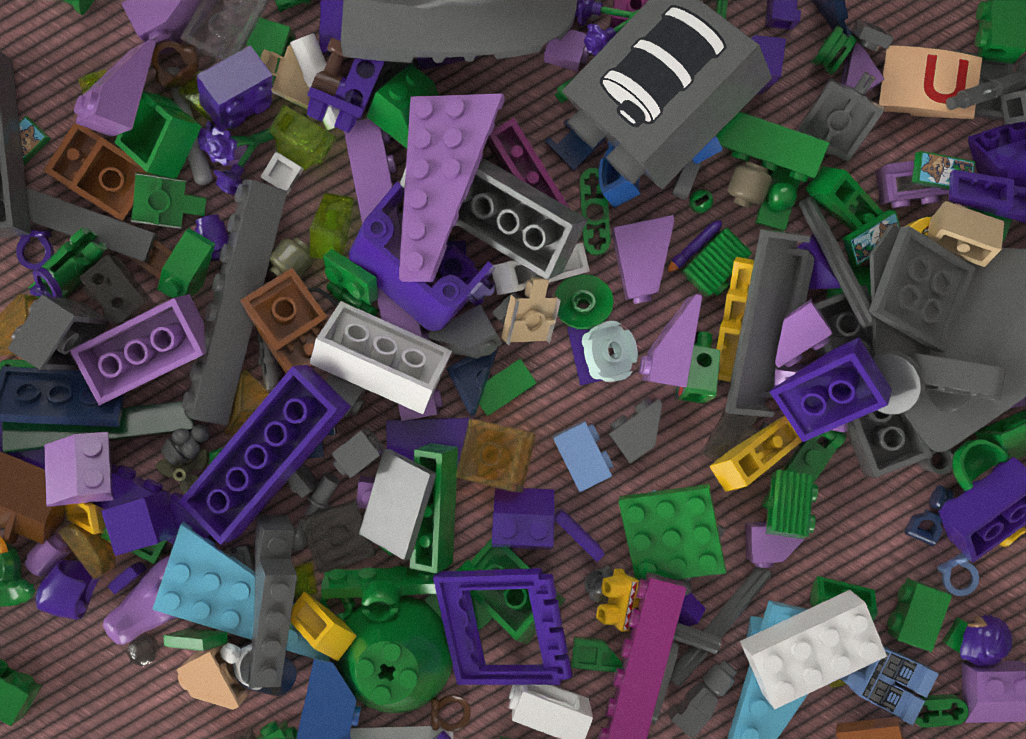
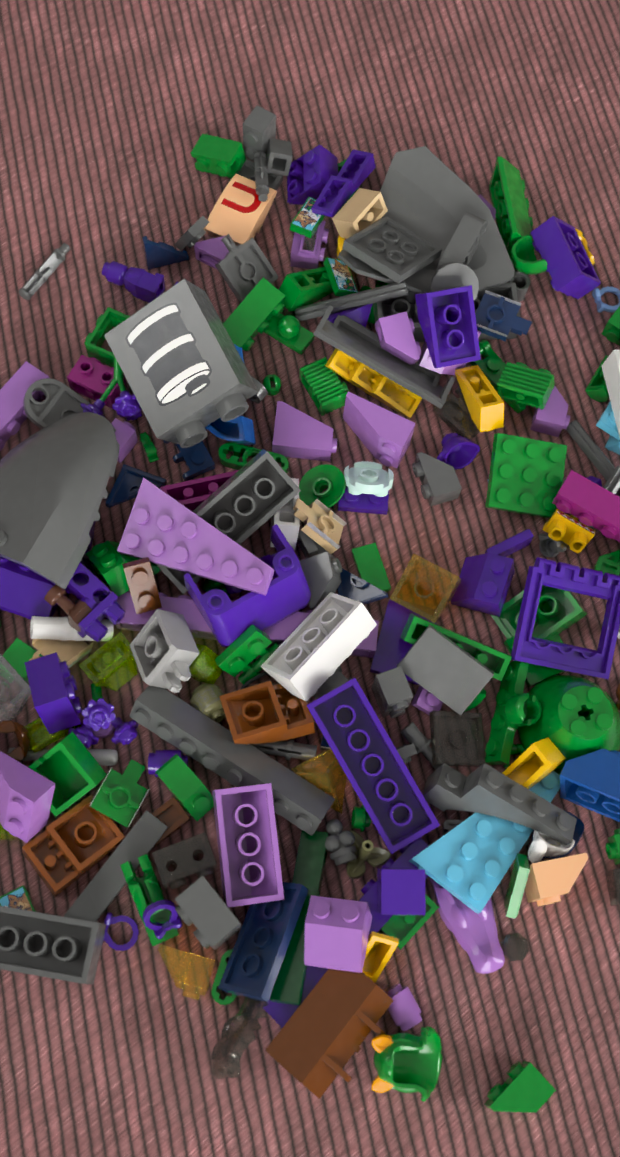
camera: 80 degrees left, 20 degrees down
(66, 590) = (441, 997): dark purple piece -> none
(90, 549) = (408, 962): clear yellow slope -> none
(127, 577) = (444, 937): dark purple tile -> none
(282, 172) = (131, 687): white plate -> none
(318, 192) = (165, 650): none -> light grey hinge
(382, 139) = (142, 585): none -> plate
(520, 84) = (128, 485): none -> dark blue tile
(582, 455) = (444, 525): medium blue brick -> none
(681, 444) = (458, 451): none -> dark purple piece
(694, 246) = (304, 398): dark purple piece -> none
(701, 379) = (414, 412): green torso -> none
(750, 184) = (272, 345): dark tan head -> none
(831, 48) = (193, 261): green wheel -> none
(872, 447) = (499, 315): none -> dark blue piece
(937, 500) = (548, 294): dark blue piece -> none

